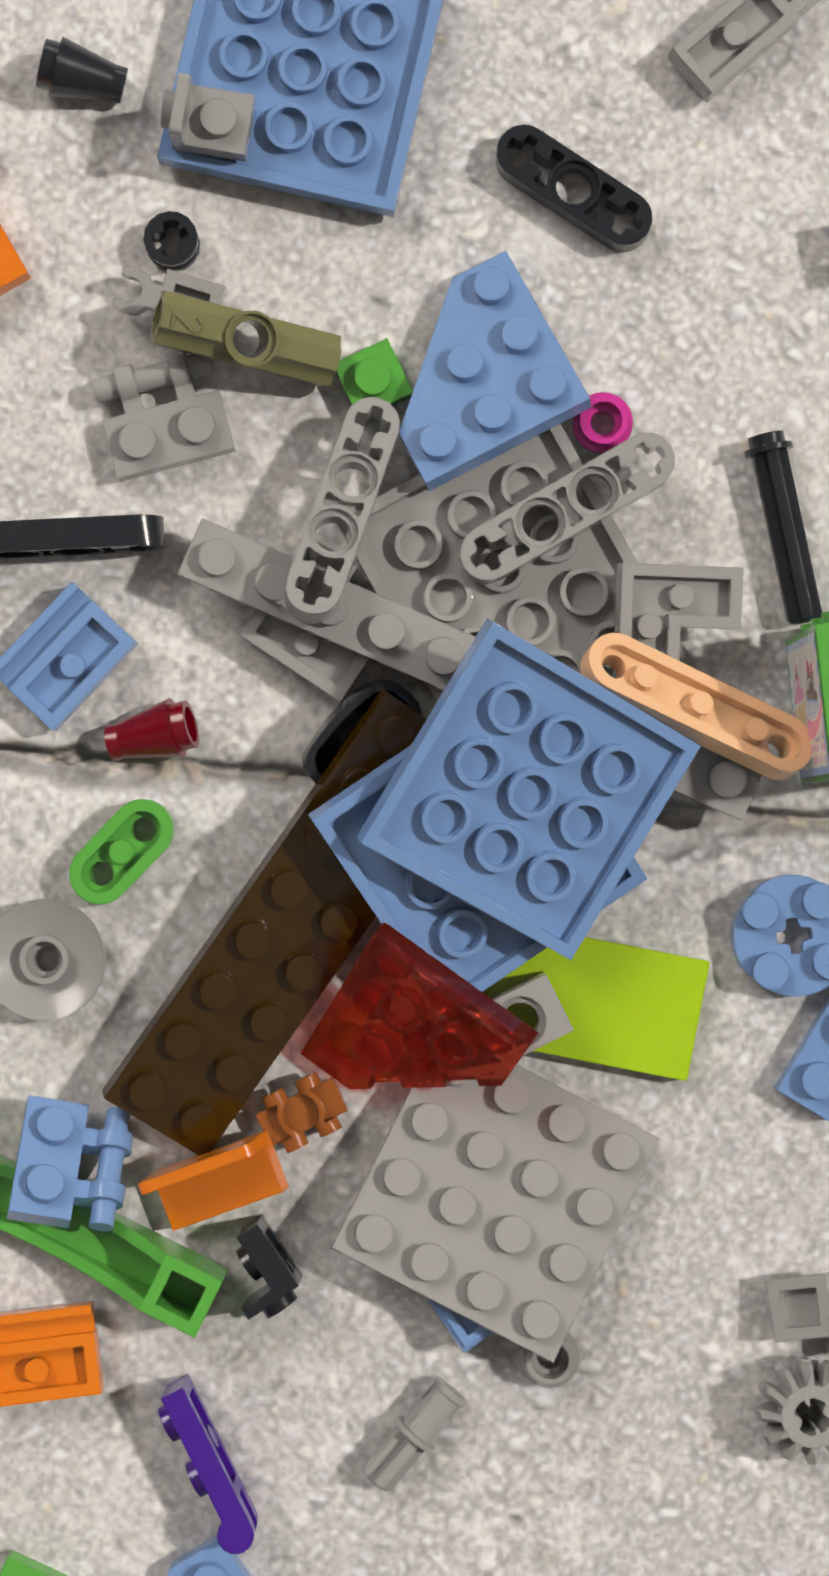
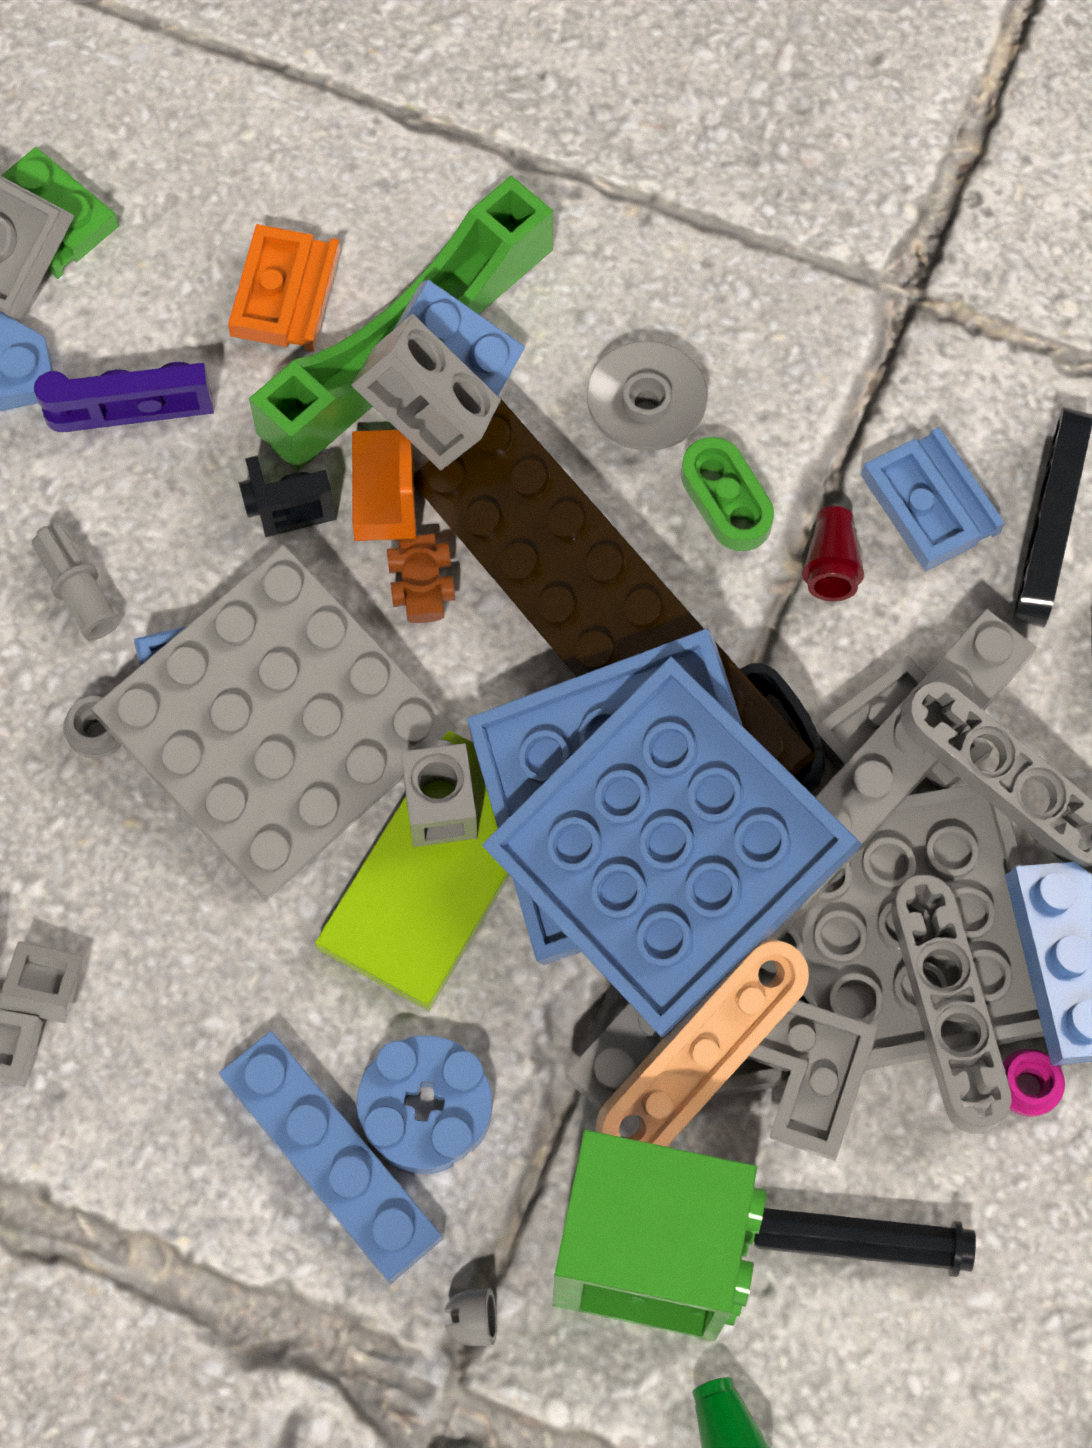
camera: 105 degrees right, 20 degrees down
(137, 1167) = (426, 392): none -> light grey brick
(414, 1023) = (472, 679): clear red plate -> none

